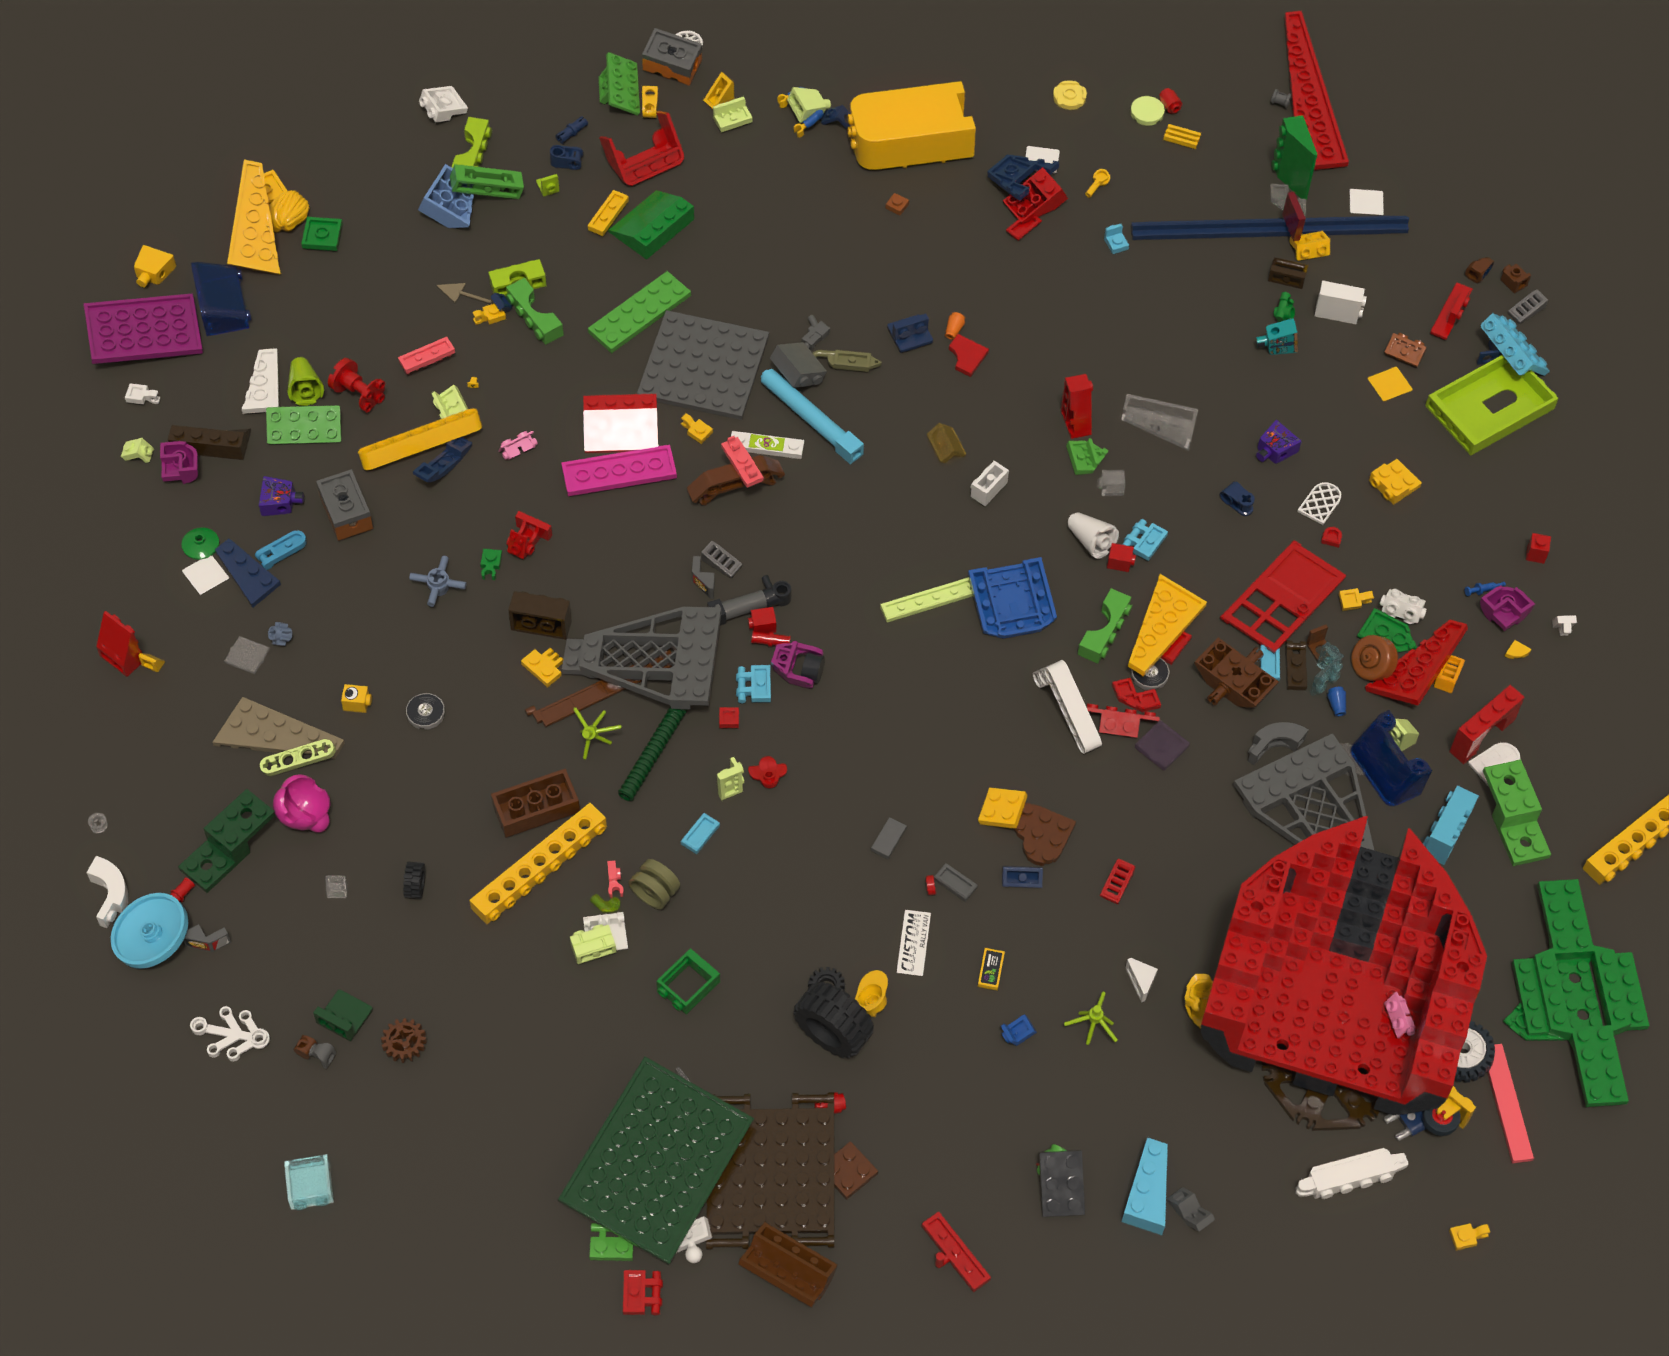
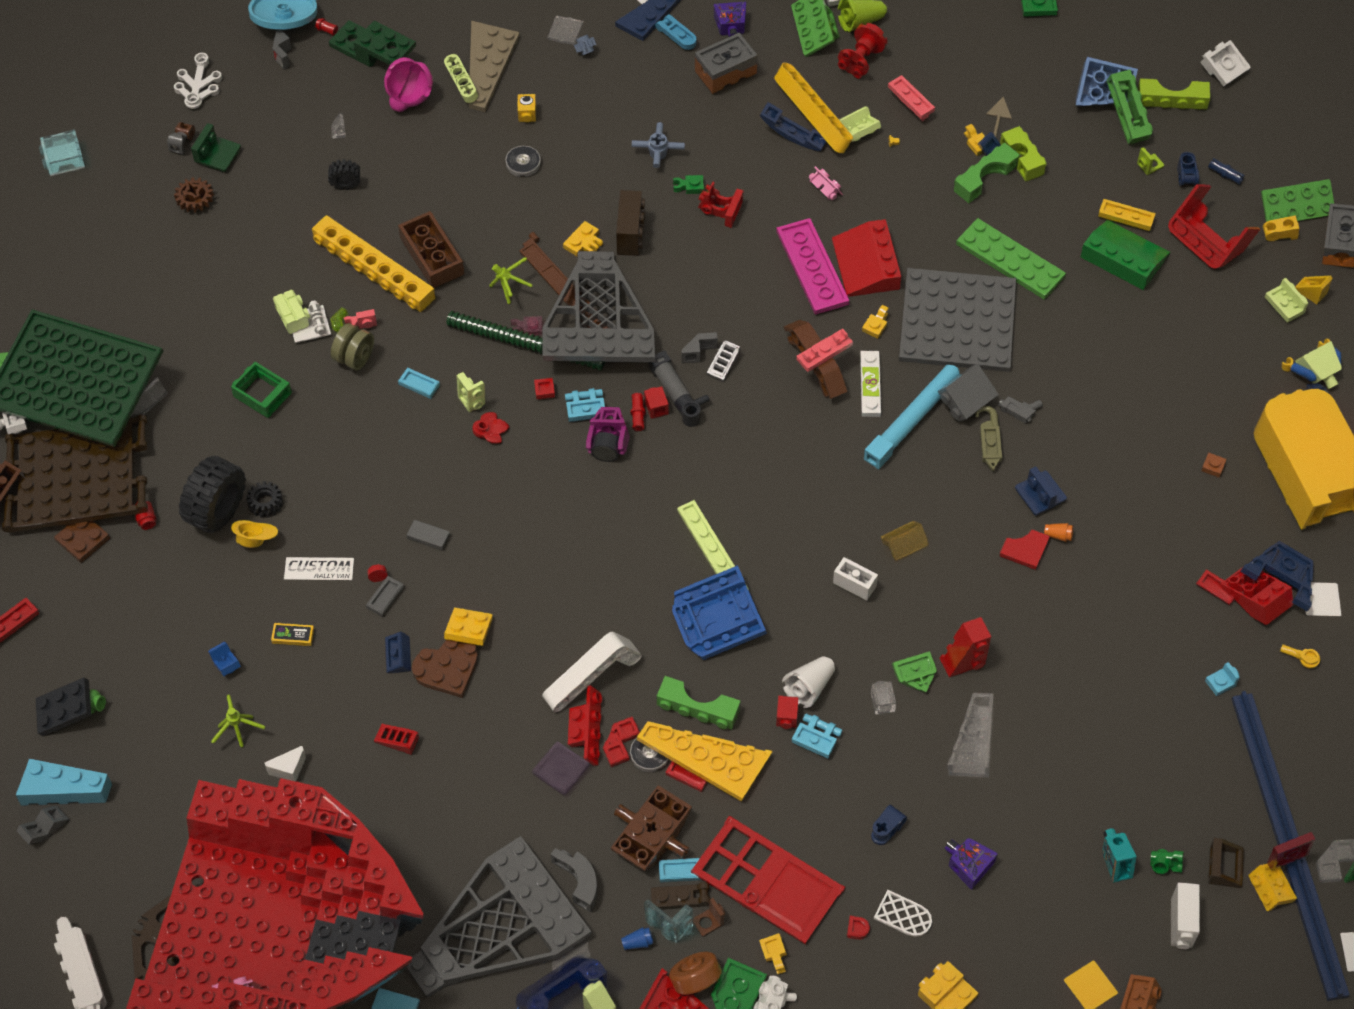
camera: 85 degrees right, 0 degrees up
(644, 725) = (530, 324): none -> clear pink plate

